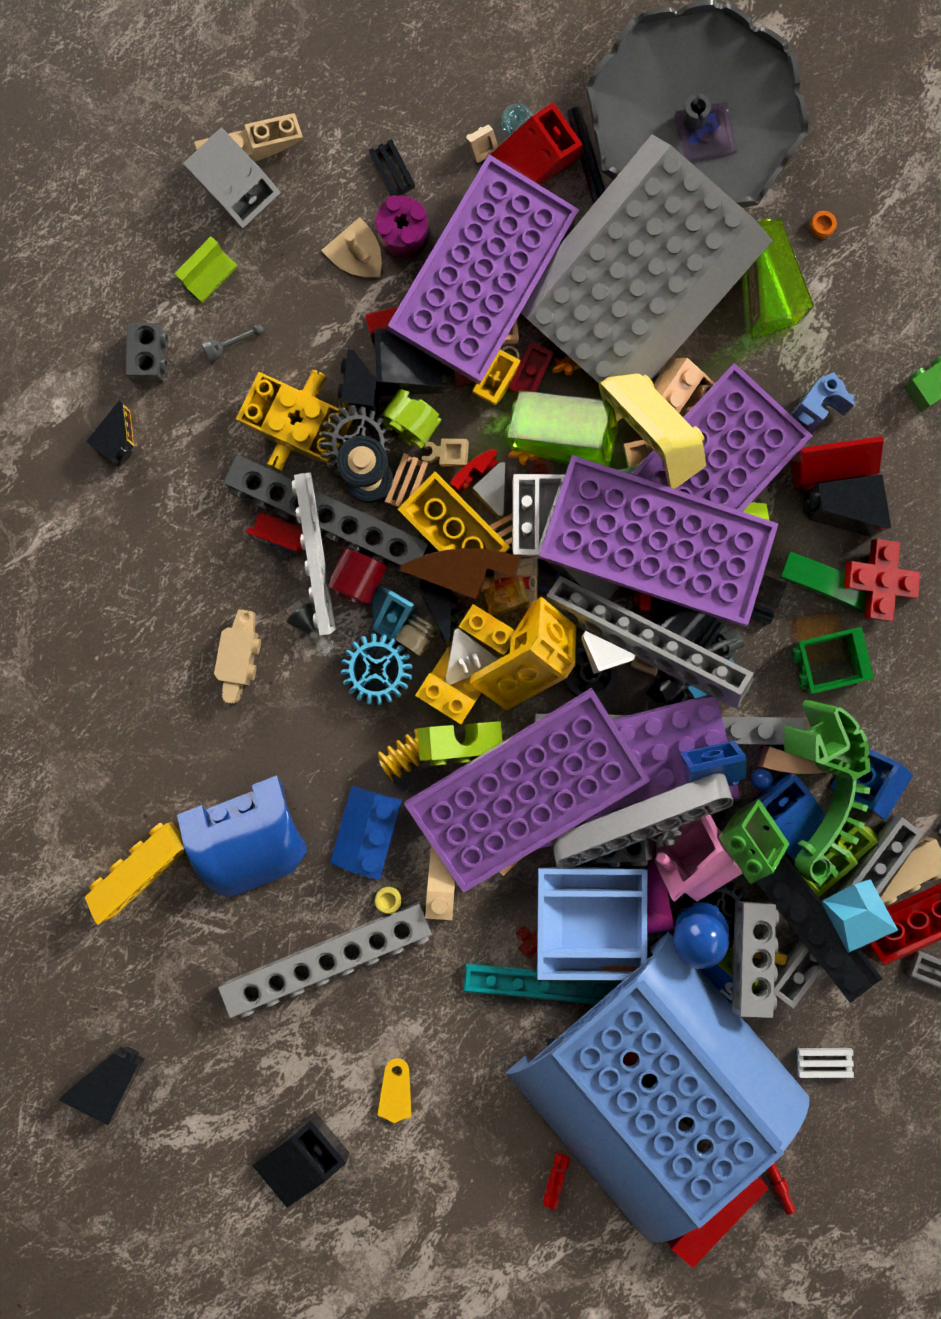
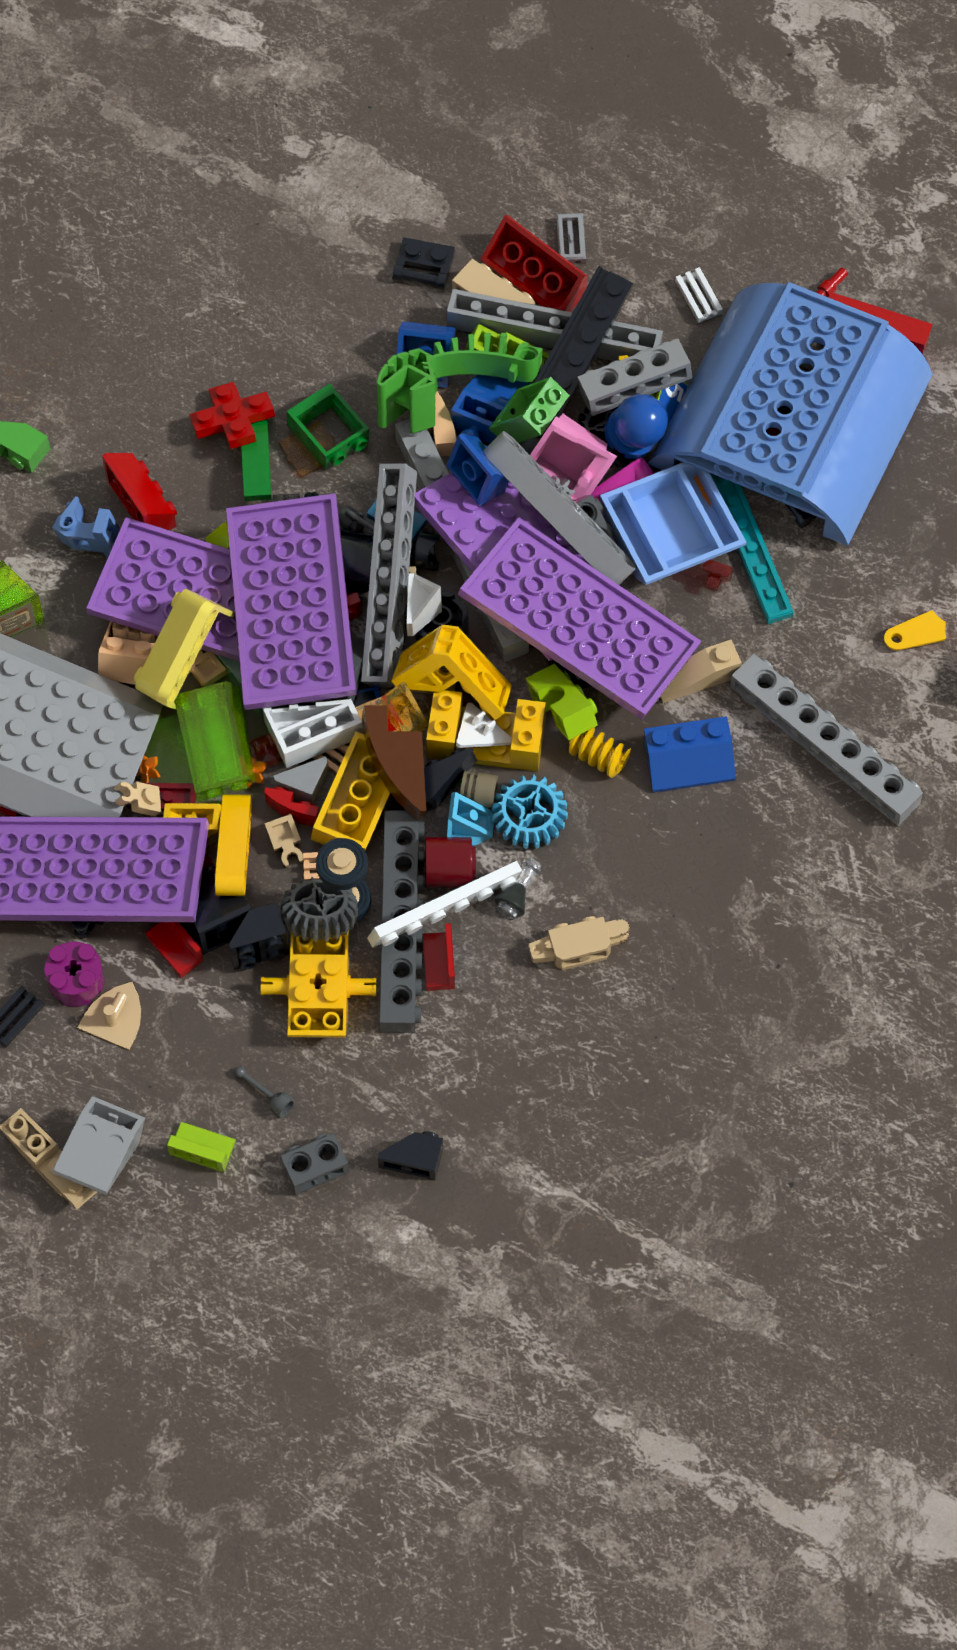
camera: 115 degrees left, 20 degrees down
(136, 873) = (832, 935): yellow slope -> none
(243, 840) = (750, 857): blue piece -> none
(388, 900) = (743, 713): light yellow tile -> none
(411, 419) = (269, 877): lime brick -> none
(450, 398) = (233, 845): none -> yellow beam
(532, 340) = (142, 797): none -> tan plate
(556, 1181) = (921, 466): red axle -> none
(850, 505) = (172, 464): black slope -> none
(859, 915) = (553, 308): medium azure slope -> none

